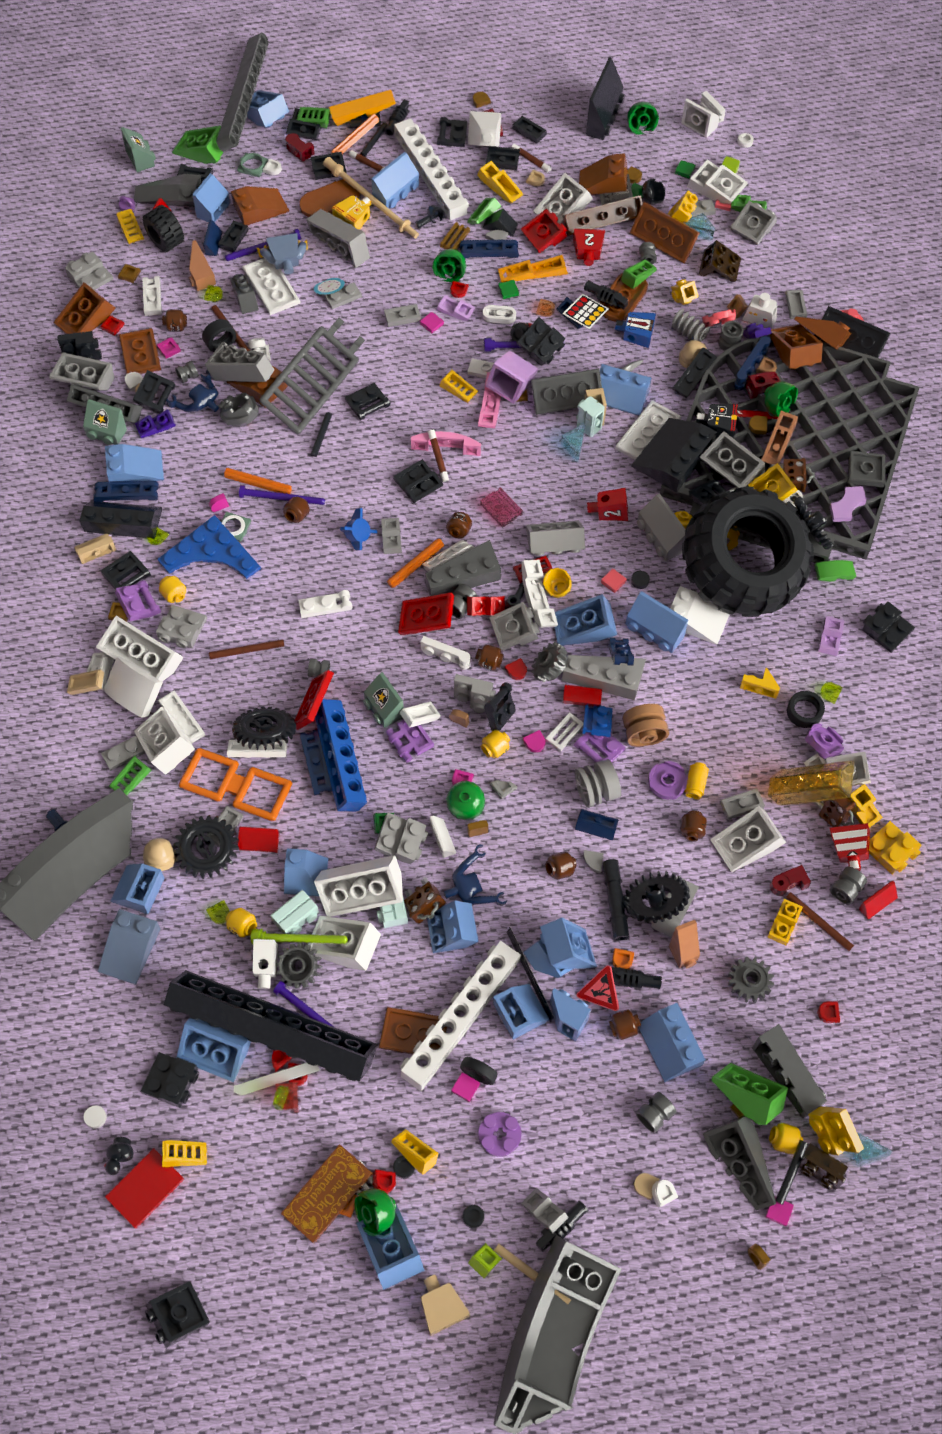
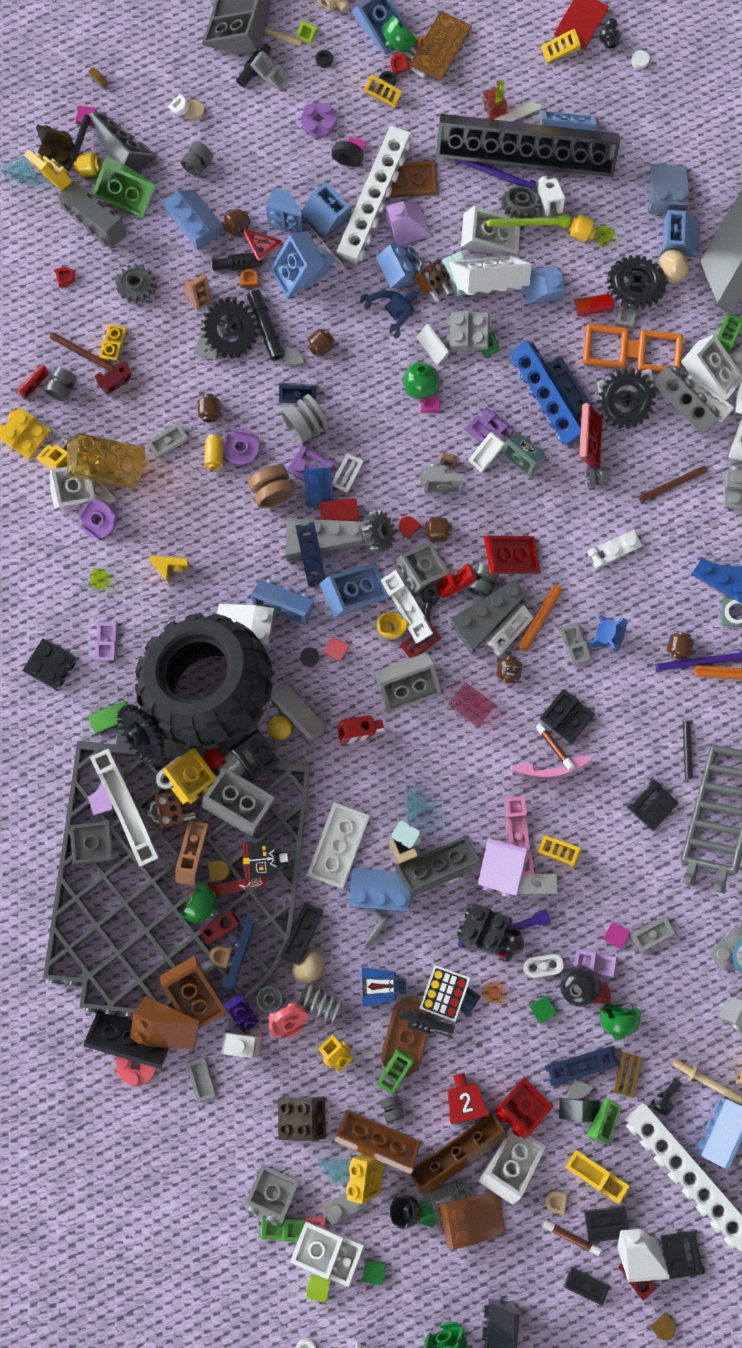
camera: 165 degrees right, 15 degrees up
(170, 1080) = (592, 97): black plate -> none
(203, 714) = (676, 397): none -> dark grey brick
(295, 914) = (539, 245): light aqua brick -> none
(430, 978) = (406, 222): none -> lavender slope
(445, 652) = (481, 522): white plate -> none
(475, 291) = (580, 986): none -> black cylinder
(477, 828) = (403, 357): pearl gold tile -> none
(495, 744) = (408, 440): yellow head -> none
(500, 707) = (412, 469): black plate -> none
(503, 788) = (390, 405): light grey tile -> none
(525, 270) = (526, 1044): light orange slope -> none
(535, 742) = (372, 456): dark pink tile -> none
(634, 174) = (436, 1242): pearl gold tile -> none
(674, 452) = (304, 806): black slope -> none
(738, 304) = (270, 1052): medium nougat tile -> none
(748, 839) = (155, 407): white slope -> none
(801, 721) = (116, 538): black tyre -> none
(844, 502) = (125, 807): none -> white arch
(852, 843) = (61, 421): red torso -> none

